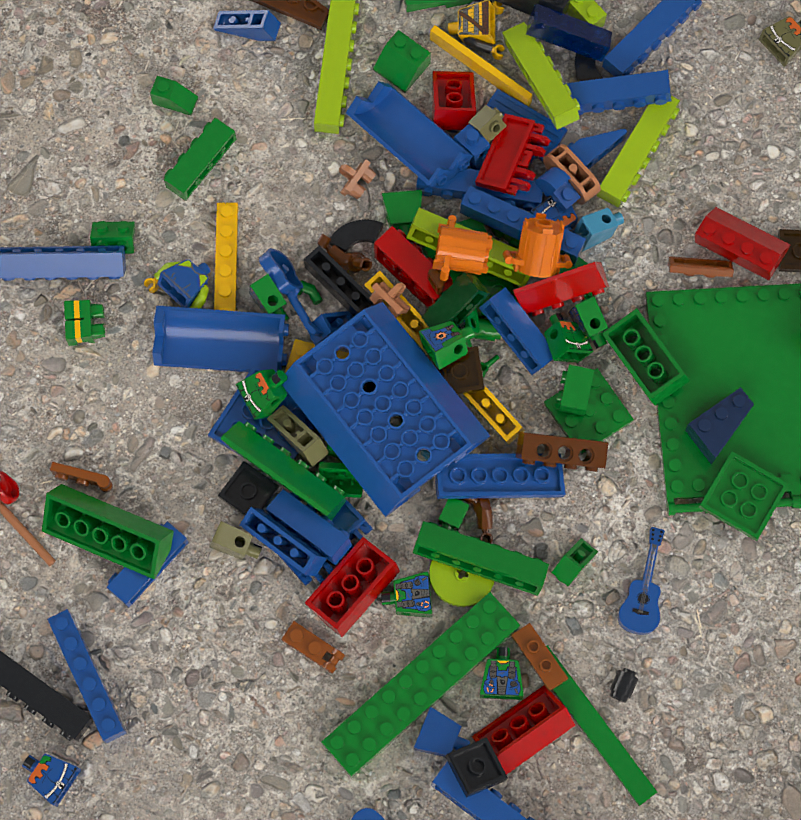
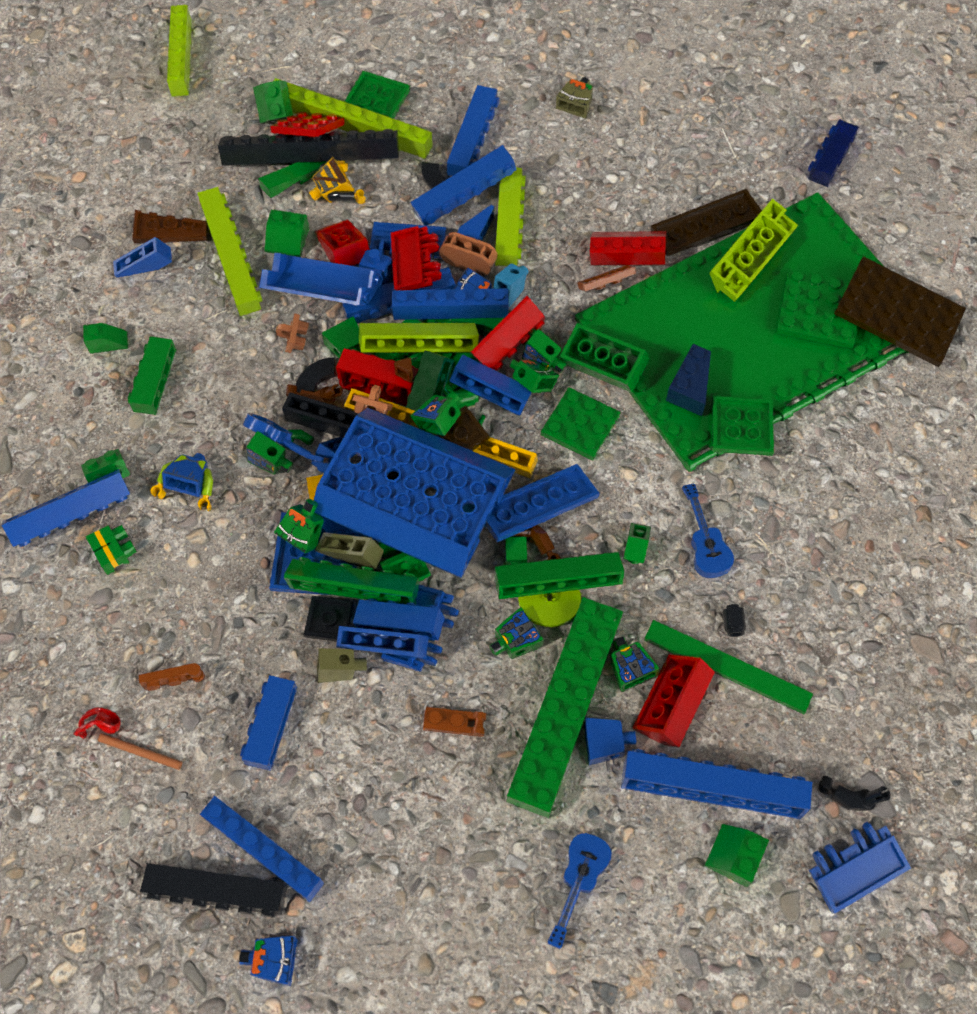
camera: 25 degrees left, 10 degrees down
(106, 530) = (217, 710): green slope -> none
(219, 339) = (238, 506): blue cylinder -> none
(226, 256) = (216, 447): yellow plate -> none
(352, 586) = (462, 651): red slope -> none
(461, 250) = (413, 334): orange container -> none
(476, 767) = (655, 745): black tile -> none
(480, 66) = (349, 210): yellow tile -> none
(488, 122) = (381, 240): olive brick -> none
(539, 248) = (475, 307): orange container -> none
(539, 657) = (653, 631): dark orange plate -> none
(541, 76) = (405, 193): lime brick -> none
(556, 184) = (461, 264): blue brick -> none
(569, 33) = (409, 156): clear blue brick -> none
(576, 390) = (563, 408): green brick -> none
(595, 451) = (549, 462): reddish brown brick -> none

